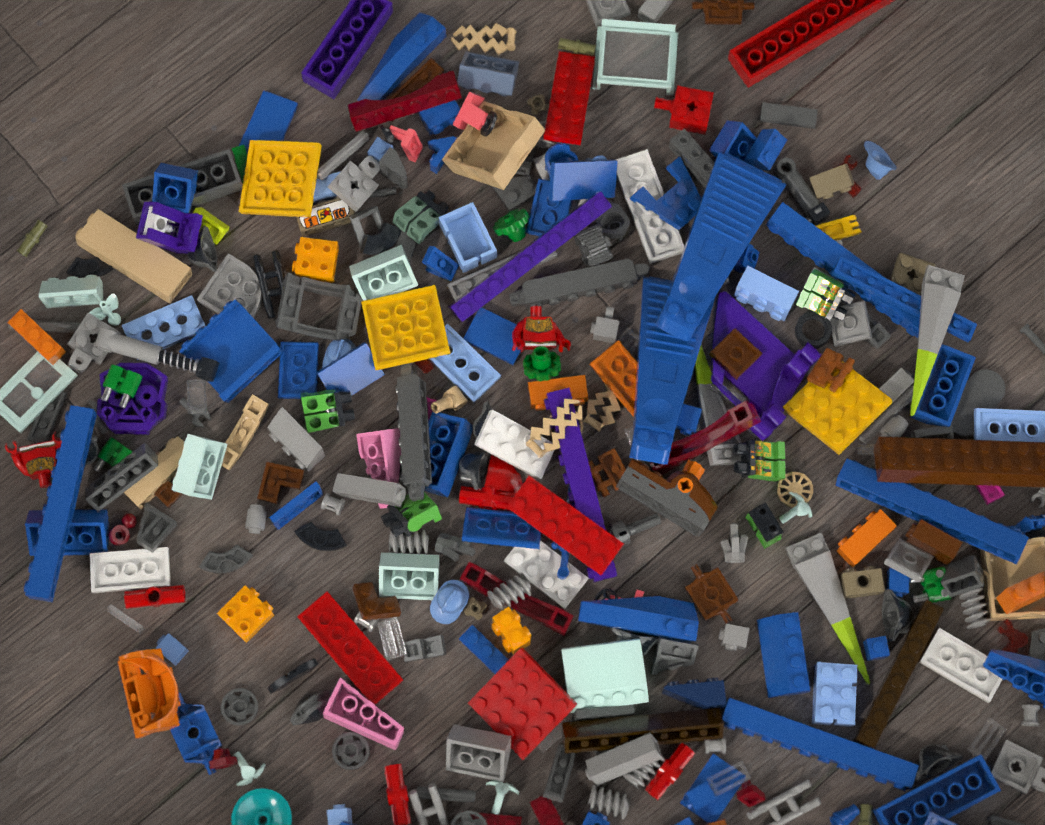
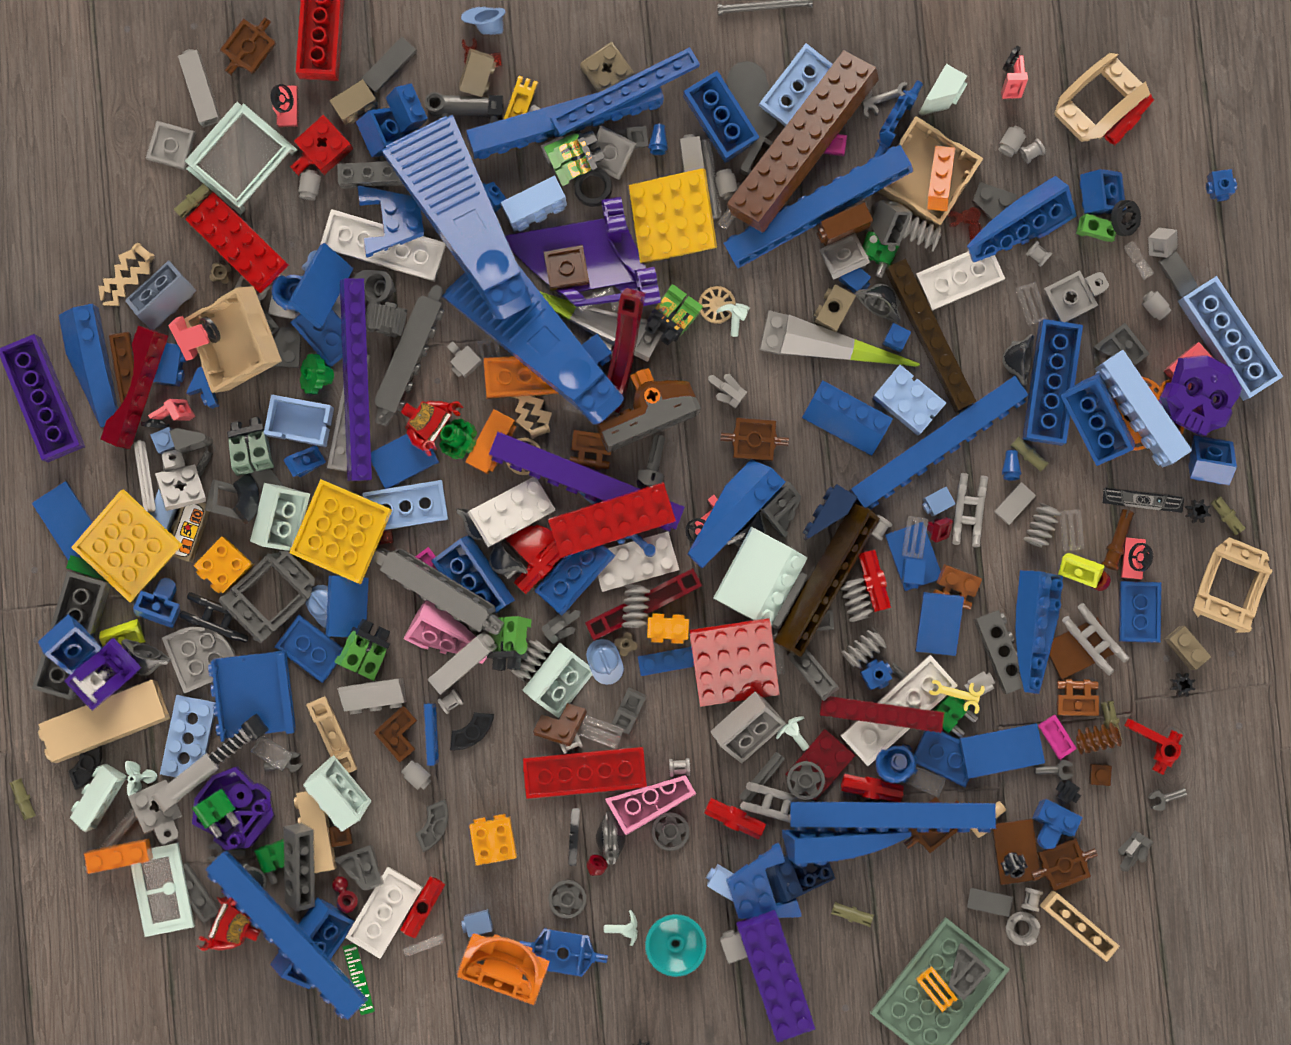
camera: 55 degrees left, 10 degrees up
(64, 587) = (357, 976): none -> green sticker
(222, 759) = (602, 943): dark red tile -> none
(252, 233) = (159, 606): none -> blue brick
(282, 710) = (596, 865): none -> dark red tile
(413, 723) = (679, 767): none -> light grey bush
(451, 399) = (432, 536): tan pin -> none
(561, 422) = (523, 460): tan piece -> none
(623, 759) = (840, 613): light grey brick -> none
(653, 121) = (309, 185): none -> light grey brick
(700, 61) = (285, 105): none -> coral piece
(733, 637) = (803, 447): light grey brick -> none
(740, 109) = (354, 102): none -> dark tan brick
(765, 522) = (730, 351): black hips -> none
(771, 777) = (938, 502): none -> medium blue brick
(826, 368) = (634, 200): dark orange plate -> none
(865, 537) = (799, 276): orange brick -> none
(886, 354) = (658, 140): none -> blue cone
(938, 302) = (648, 64): light grey plate -> none

